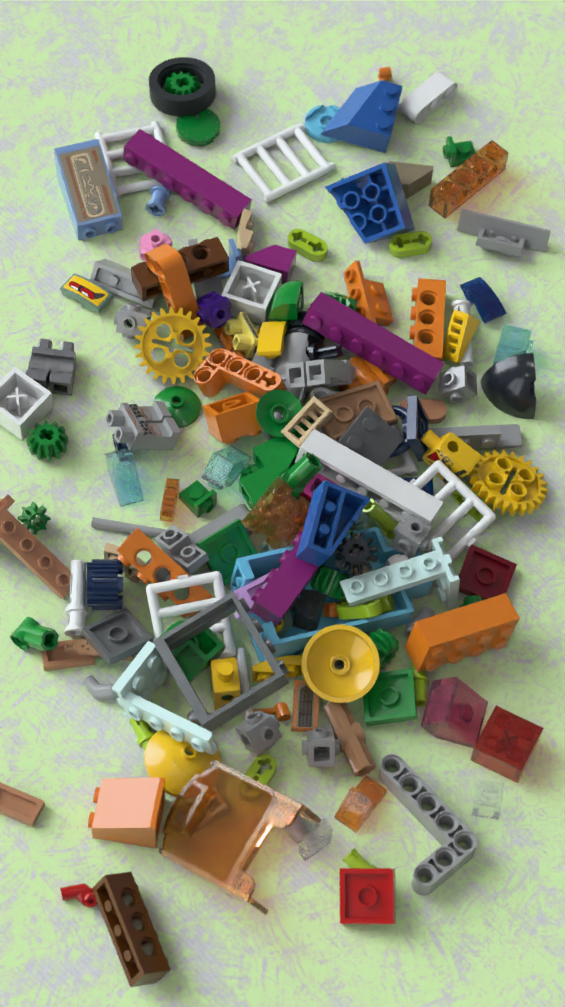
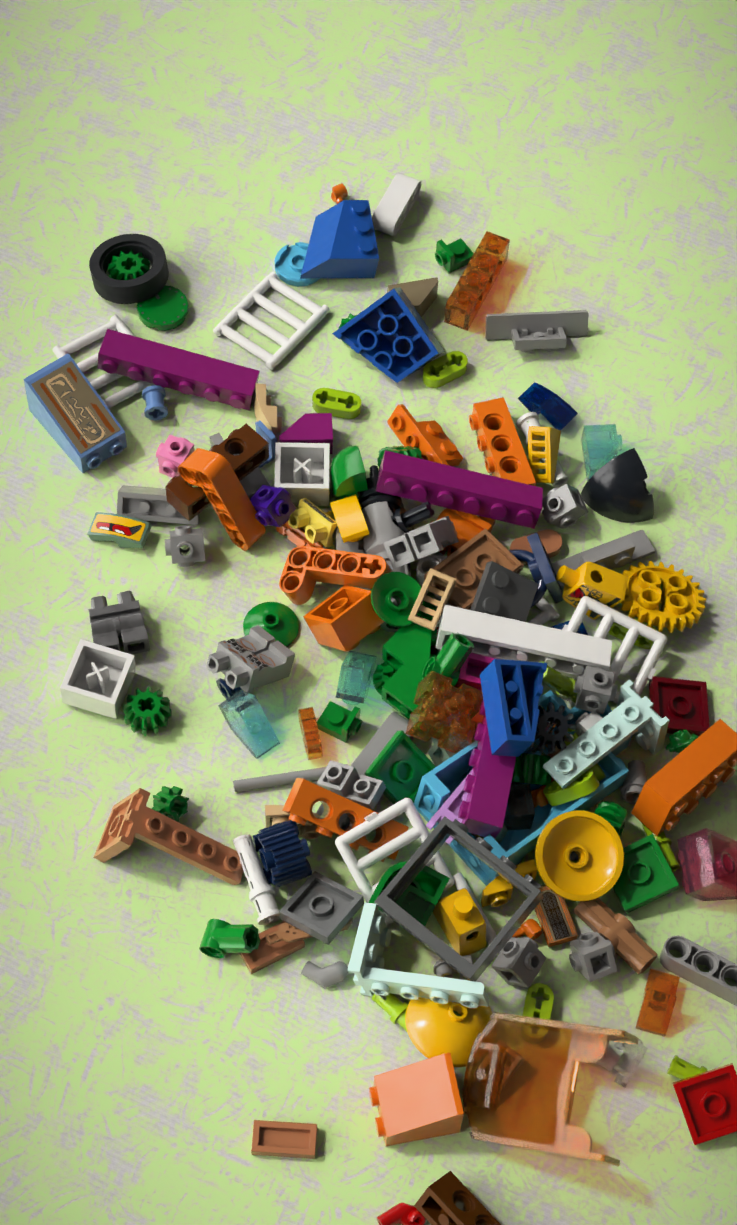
camera: 20 degrees left, 0 degrees up
(177, 324) = (244, 584): yellow gear -> none

